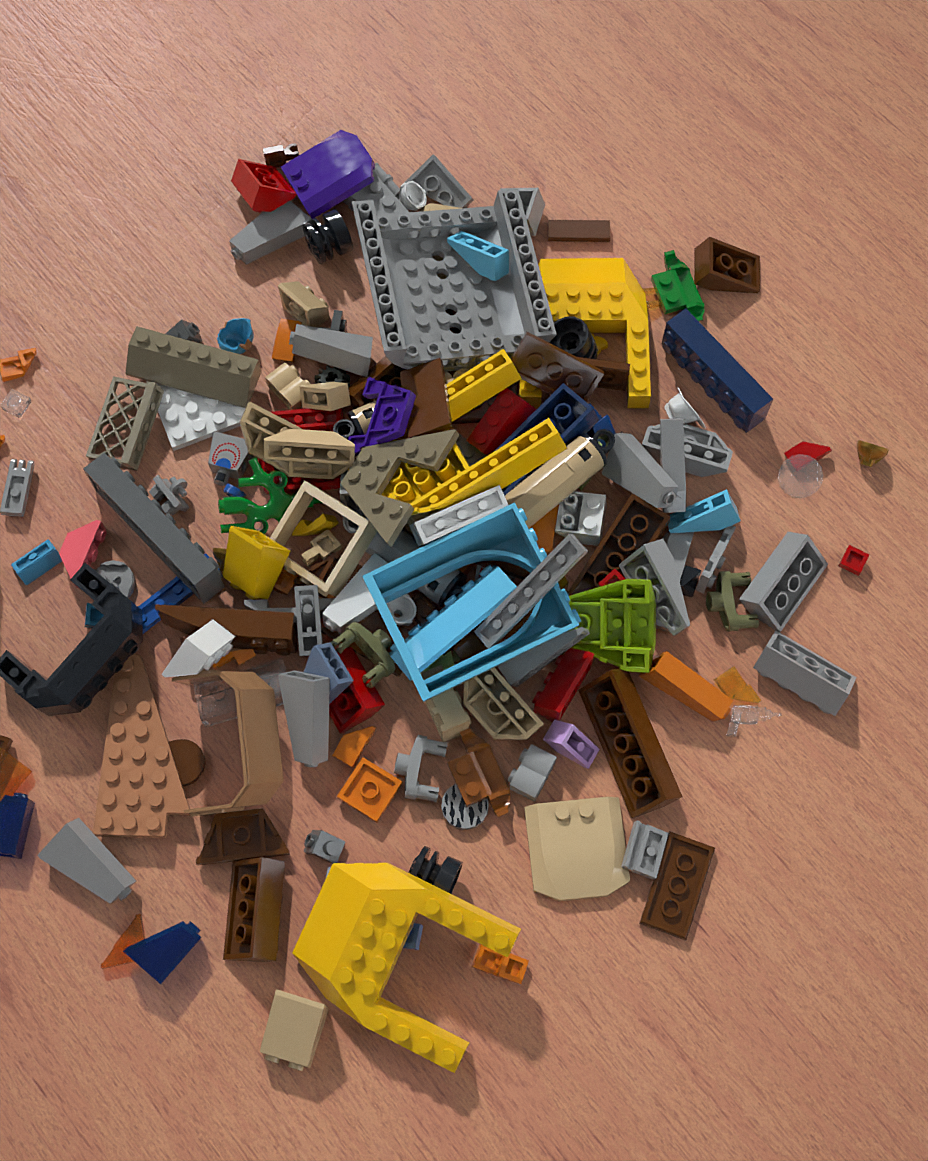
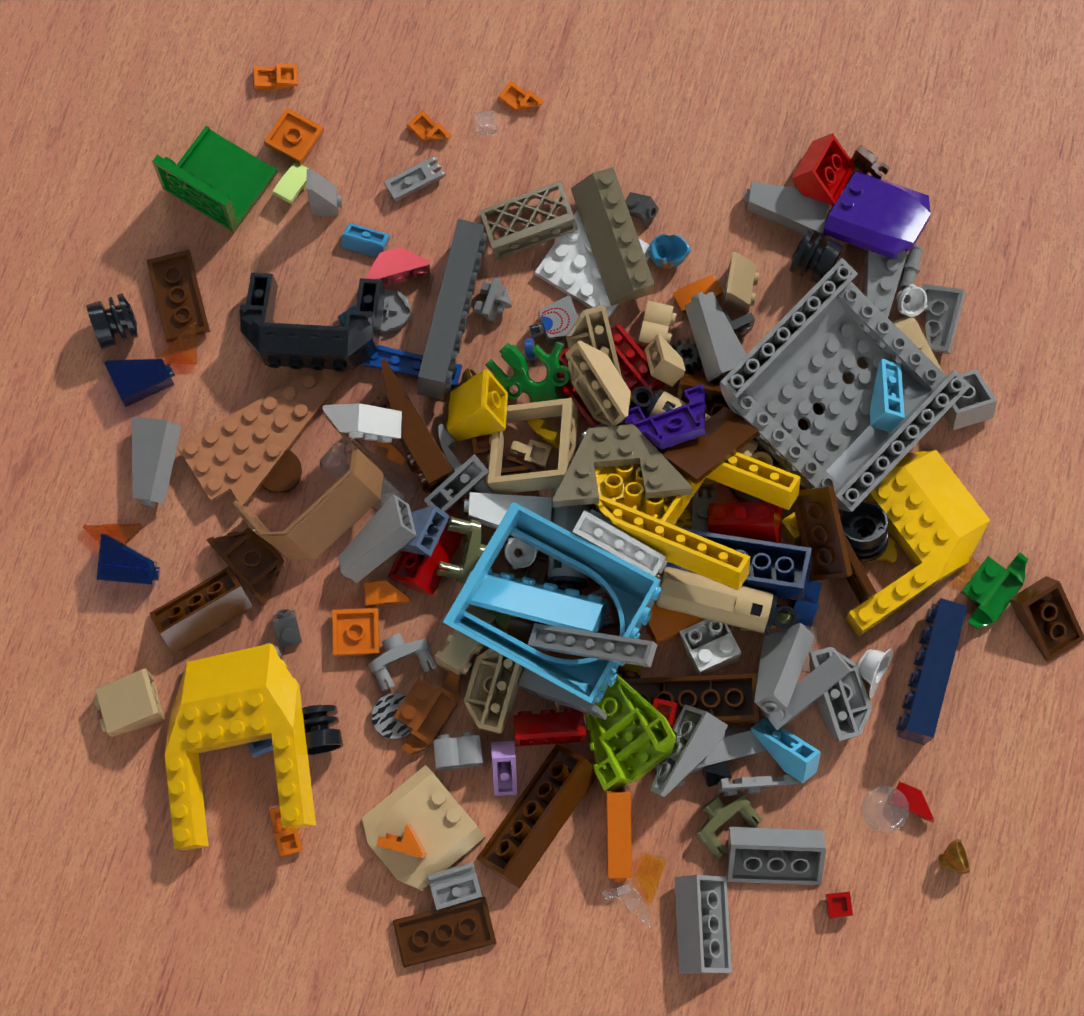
camera: 50 degrees right, 5 degrees up
(579, 230) = (989, 464): reddish brown tile -> none
(588, 862) = (409, 845): none -> orange slope

